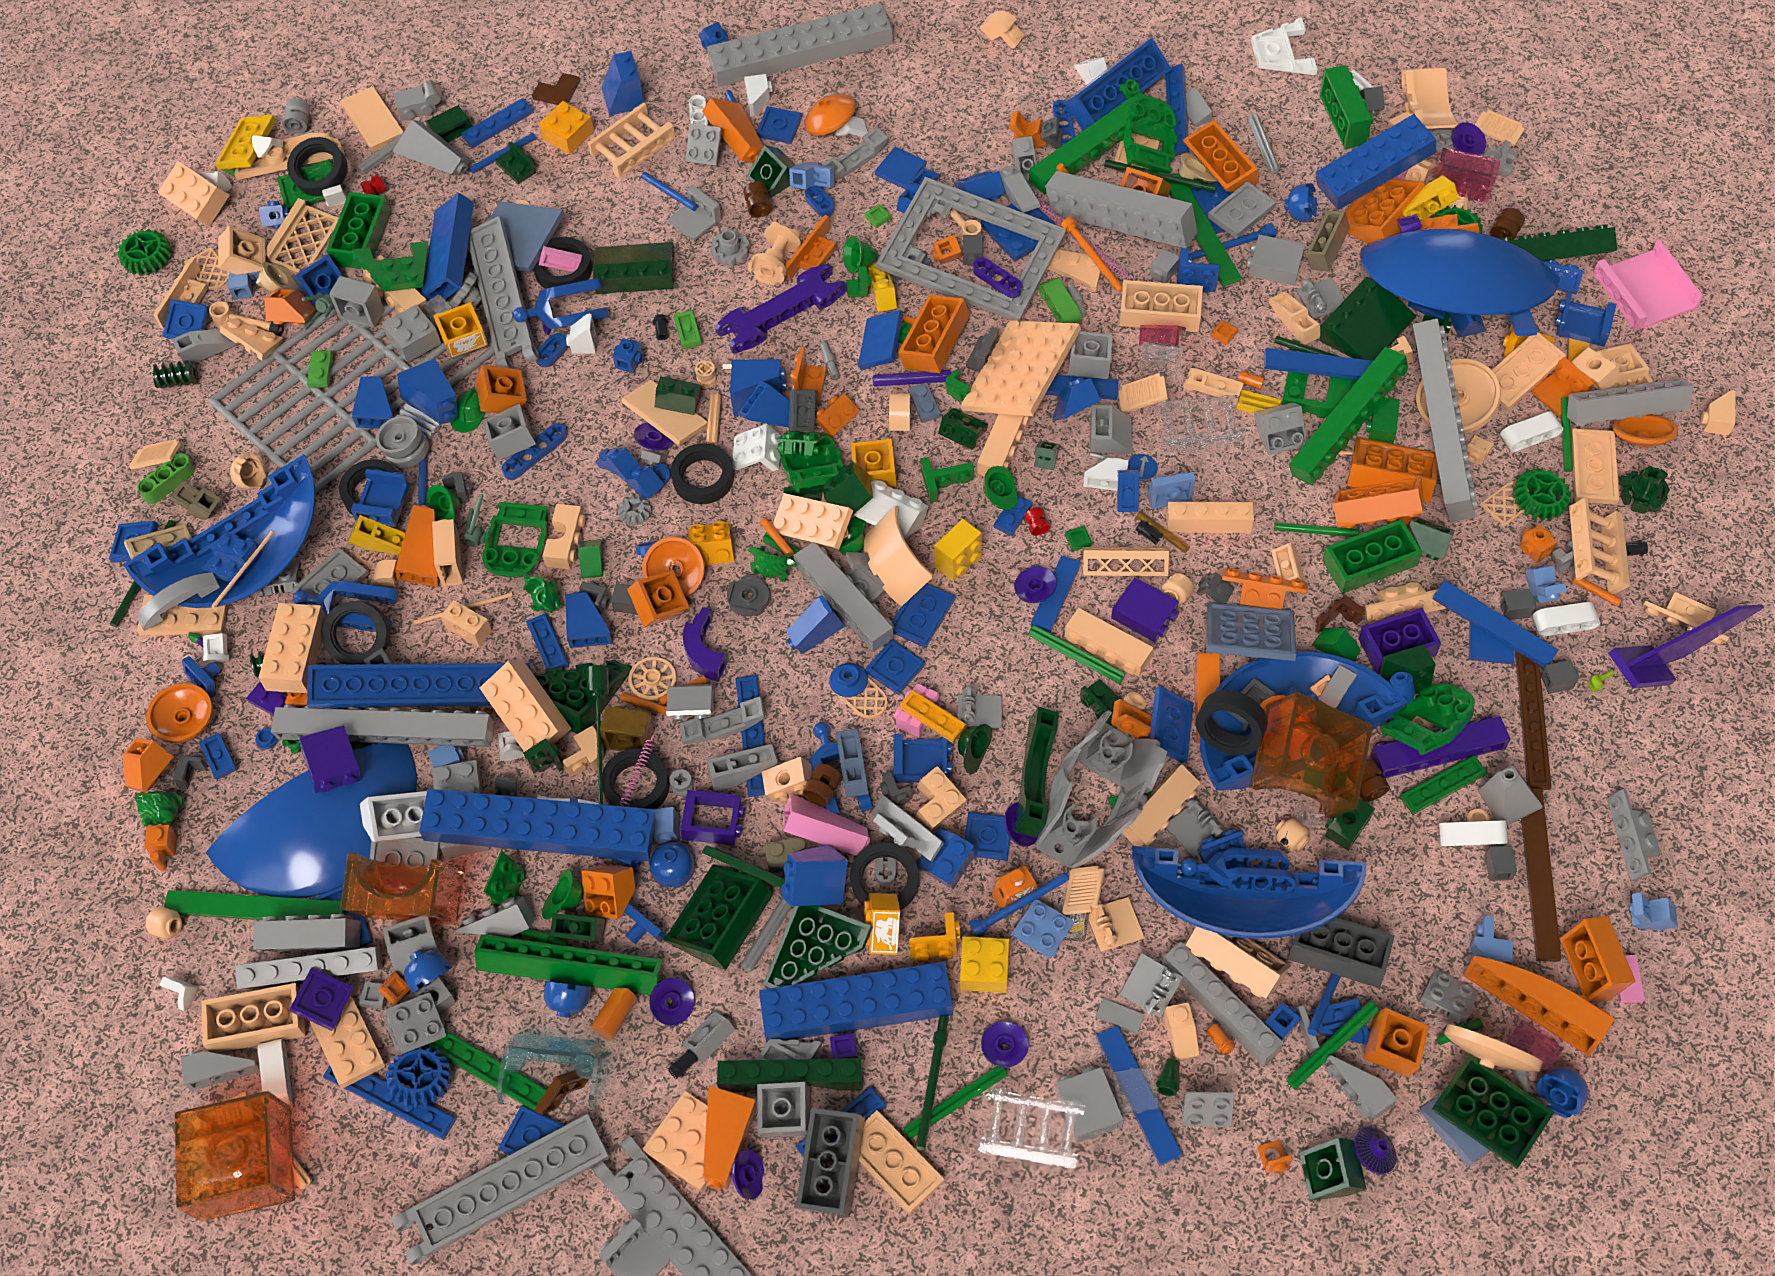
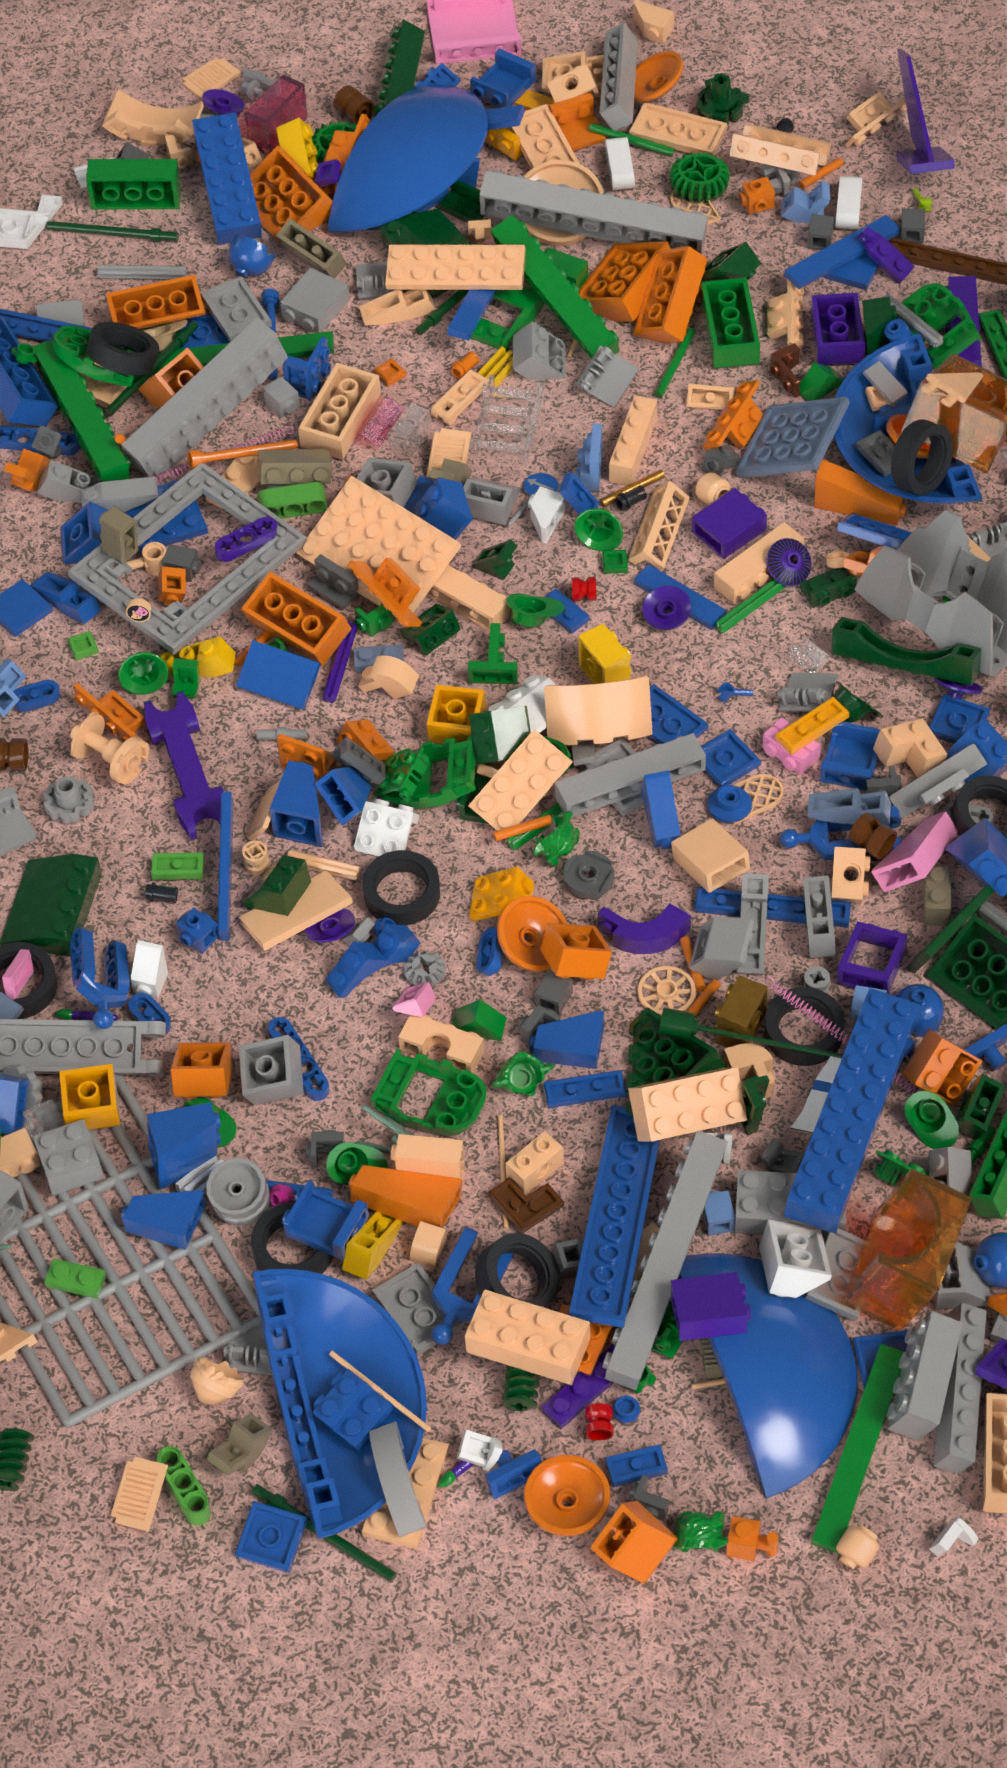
camera: 75 degrees left, 5 degrees down
(166, 537) = (290, 1499): tan tile -> none
(249, 722) = (599, 1422): none -> red wheel
(410, 471) = (281, 1194): none -> dark pink plate
(429, 630) = (525, 1210): none -> reddish brown tile
(595, 508) = (415, 1000): none -> bright pink slope
(686, 354) = (225, 866): none -> blue tile
(784, 674) = (710, 855): none -> light nougat brick
(898, 228) = (138, 610): none -> tile
(957, 190) = (118, 534): none -> dark tan brick
(965, 656) = (728, 690): none -> blue hand
(975, 382) = (391, 587): none -> orange bracket
(1018, 702) = (808, 656): none -> clear bracket
(1089, 291) = (294, 466): none -> dark tan brick
(1104, 514) = (599, 529): none -> green hat
(1118, 396) = (452, 471): none -> dark tan brick
(1122, 664) = (779, 562): none -> dish
(1171, 134) = (117, 360): none -> black tyre
(1273, 480) = (607, 376): none -> light grey hinge
(1306, 139) = (154, 234): none -> dark green bar
(1311, 724) = (956, 385): none -> light nougat flag
(1337, 336) = (456, 267): none -> light nougat plate
(1426, 694) = (916, 323): none -> light grey axle
(1507, 661) = (885, 255): none -> dark purple hinge

